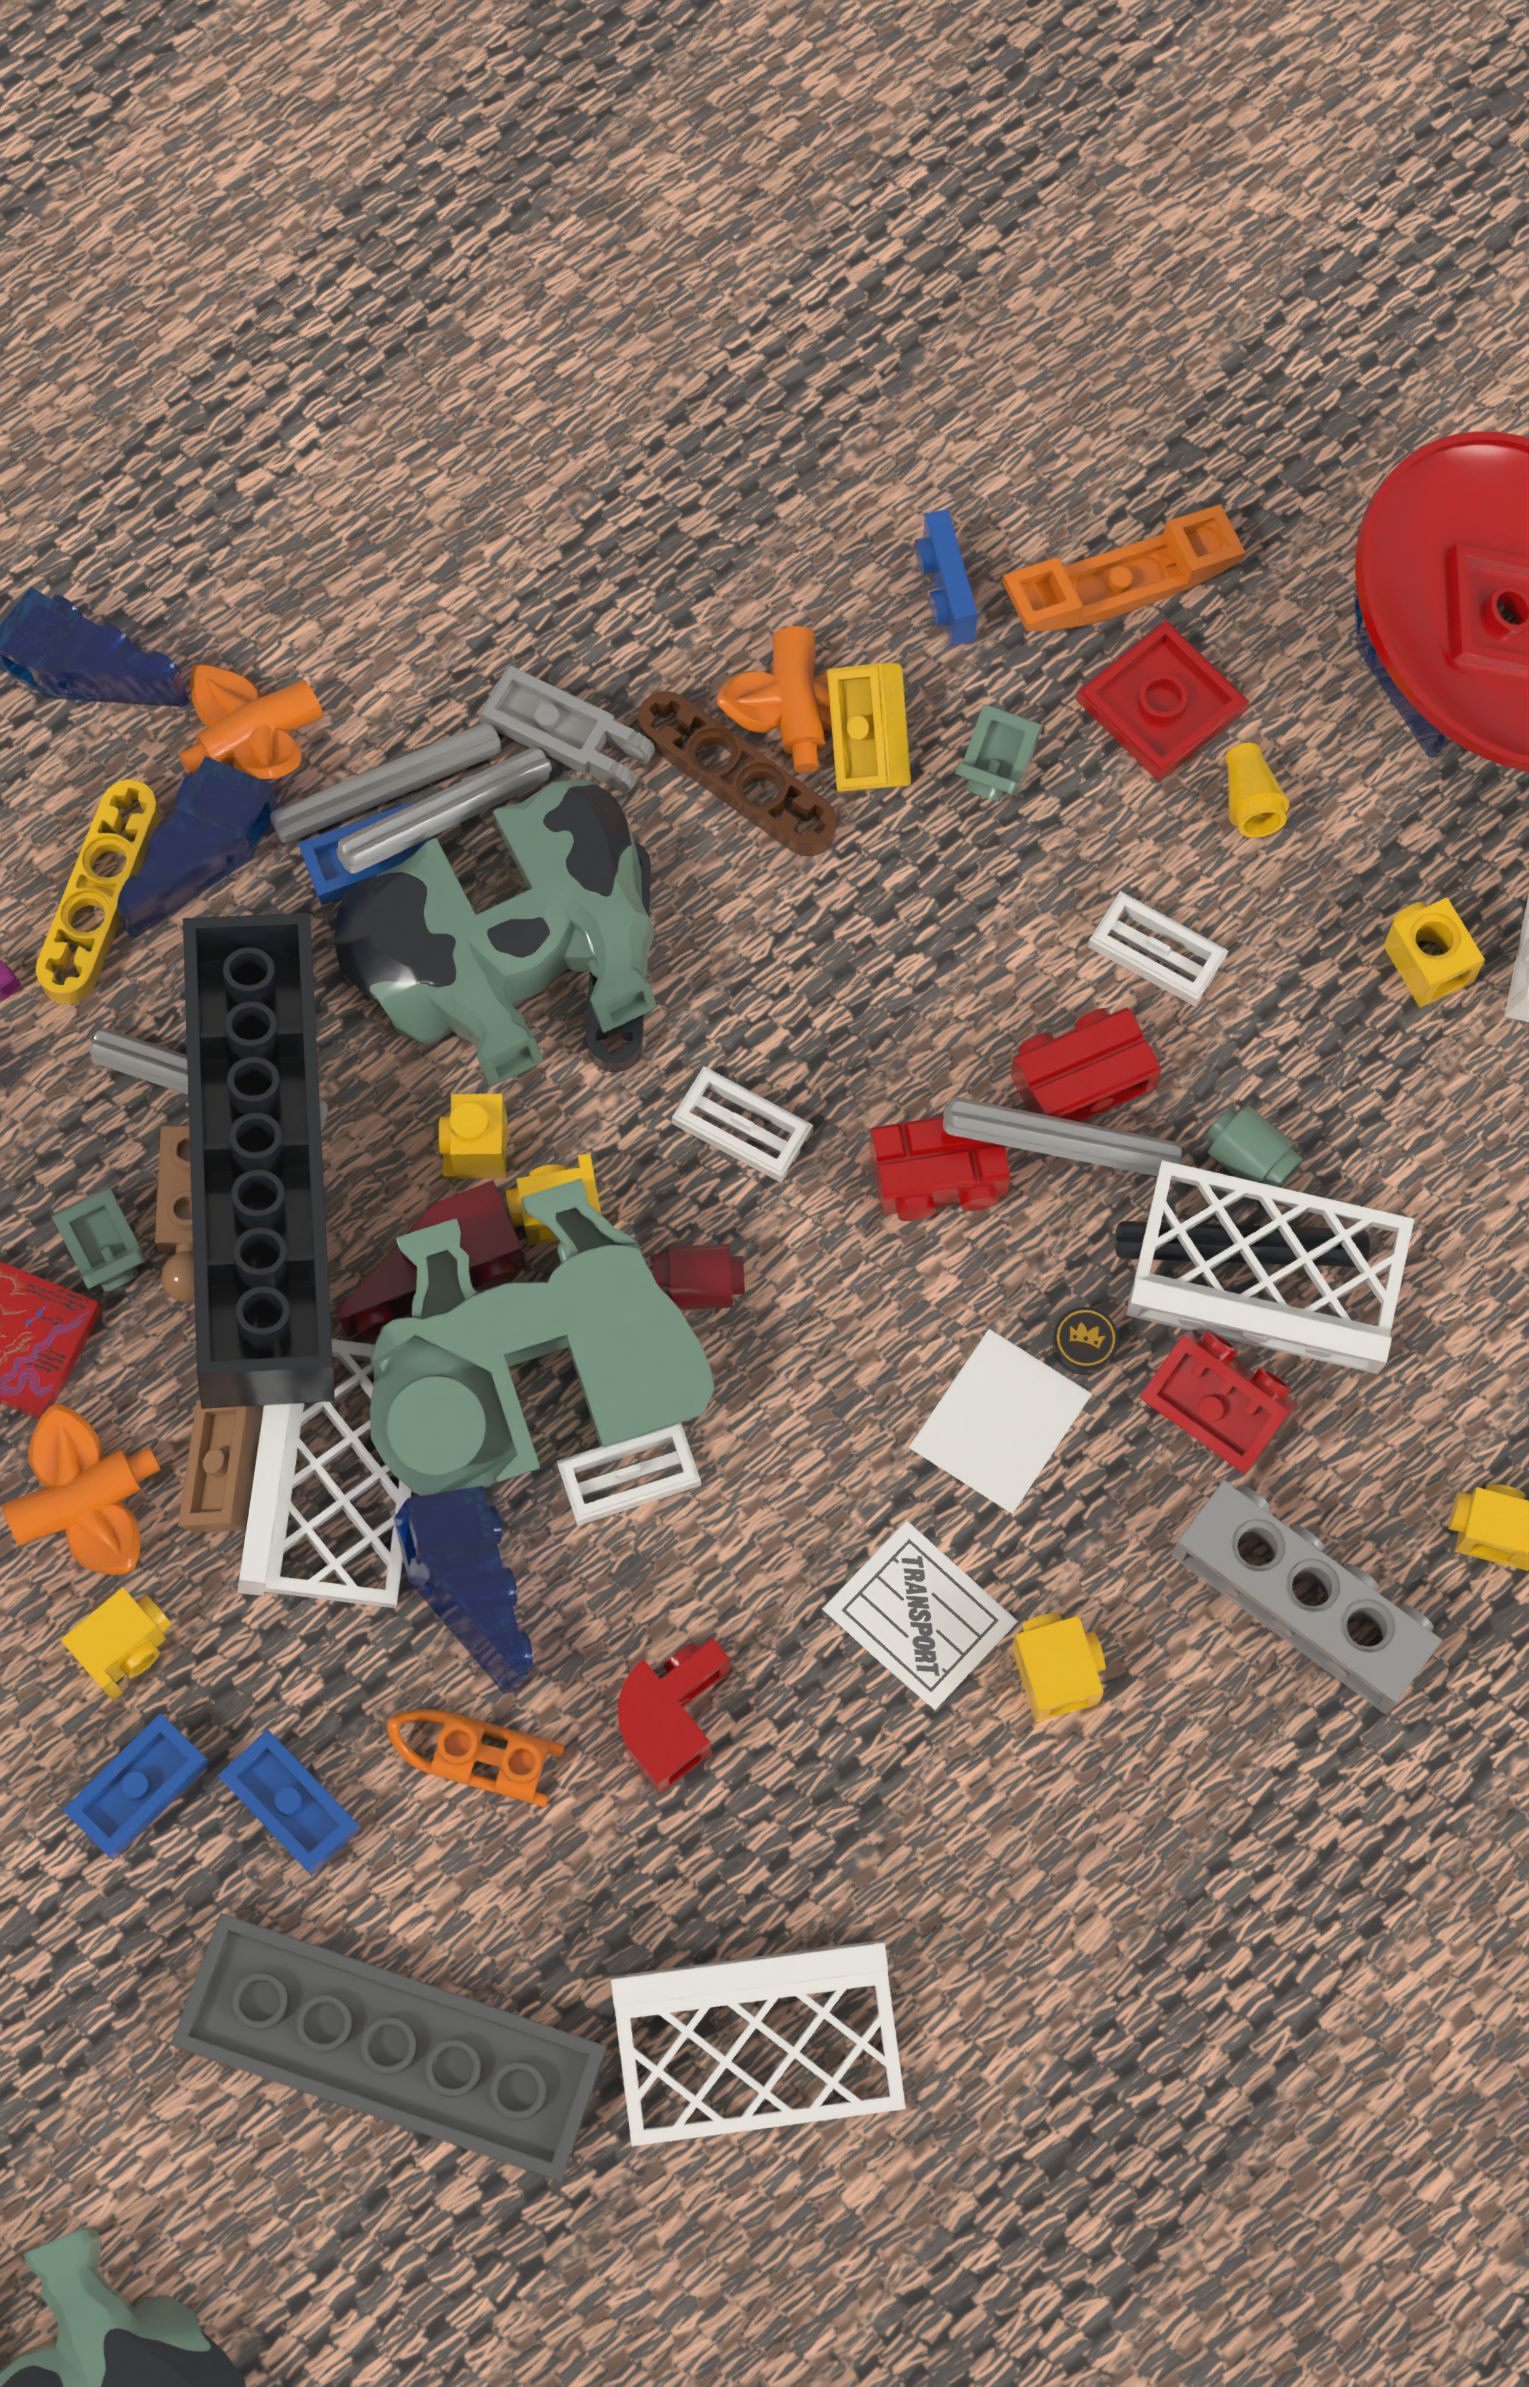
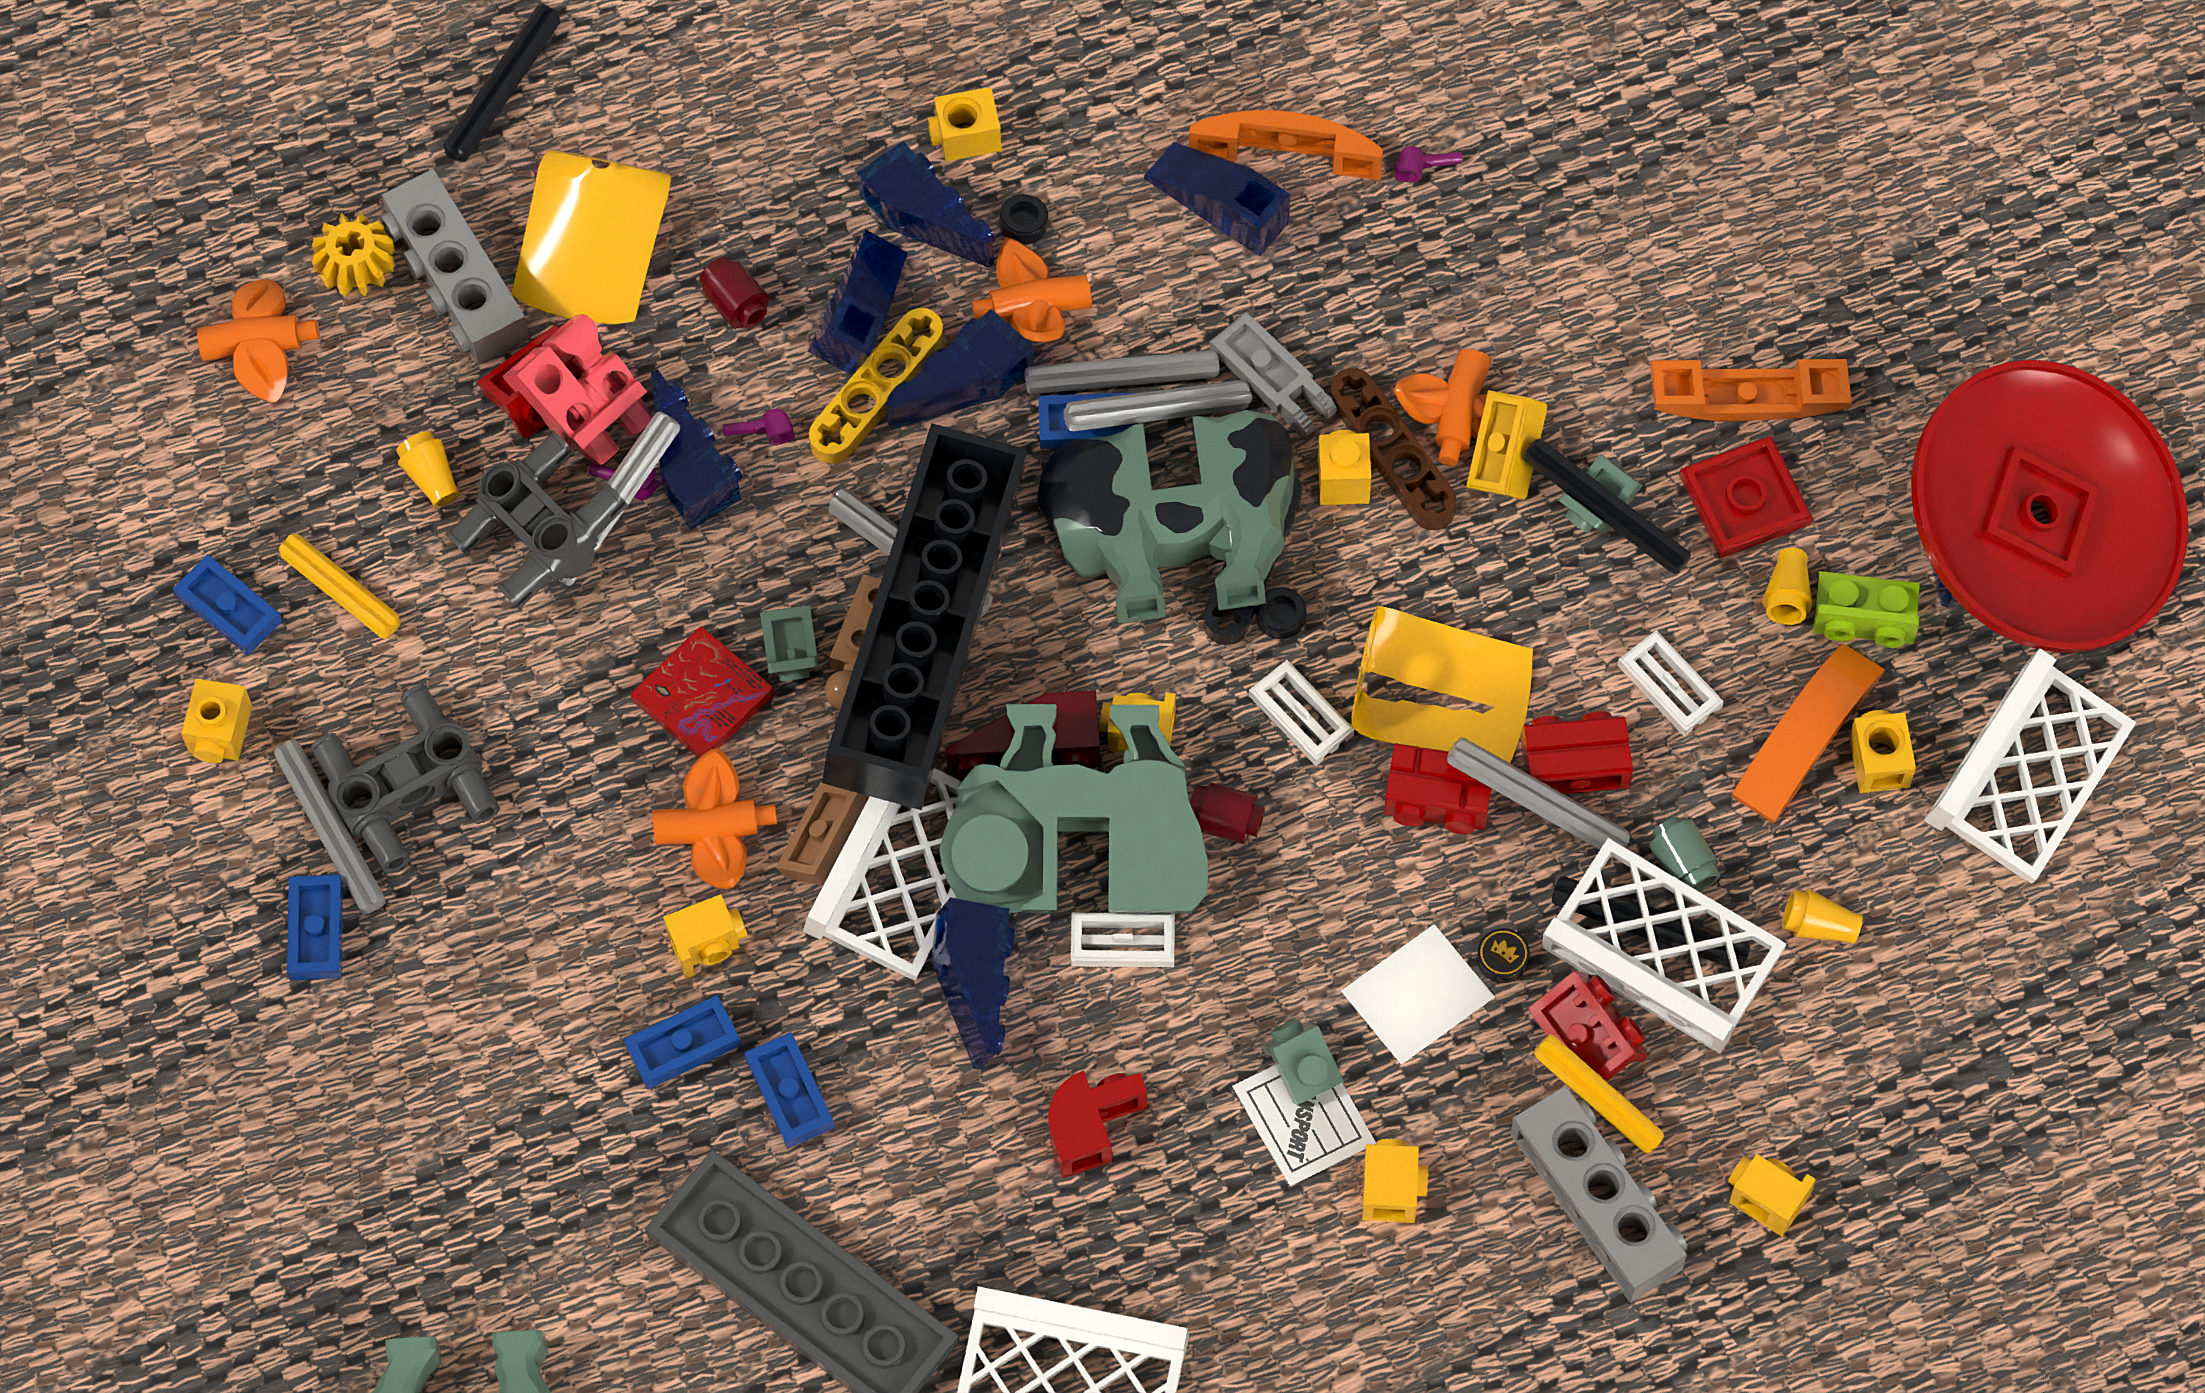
camera: 20 degrees right, 5 degrees down
(44, 799) = (859, 303): none -> clear blue slope
(98, 522) = (970, 107): none -> yellow brick
(206, 635) = (1023, 218): none -> black tile
(433, 533) = (1224, 195): none -> clear blue slope
(461, 1746) = (928, 1092): orange piece -> none
(474, 1137) = (1094, 656): yellow brick -> none
(485, 437) = (1290, 132): none -> orange slope
(638, 428) = (1412, 160): none -> magenta hand
(679, 1012) = (1282, 614): none -> black tile
(690, 814) = (1344, 468): none -> yellow brick
(895, 1008) = (1448, 663): none -> yellow piece
(897, 1550) = (1302, 1060): none -> sand green bracket
(953, 600) = (1609, 330): blue plate -> none
(1013, 763) = (1606, 506): none -> black axle
(1263, 1475) = (1598, 1094): none -> yellow axle
(1336, 957) = (1806, 731): none -> orange slope
(1349, 789) = (1866, 609): none -> lime bracket
(1434, 1173) = (1817, 917): none -> yellow cone

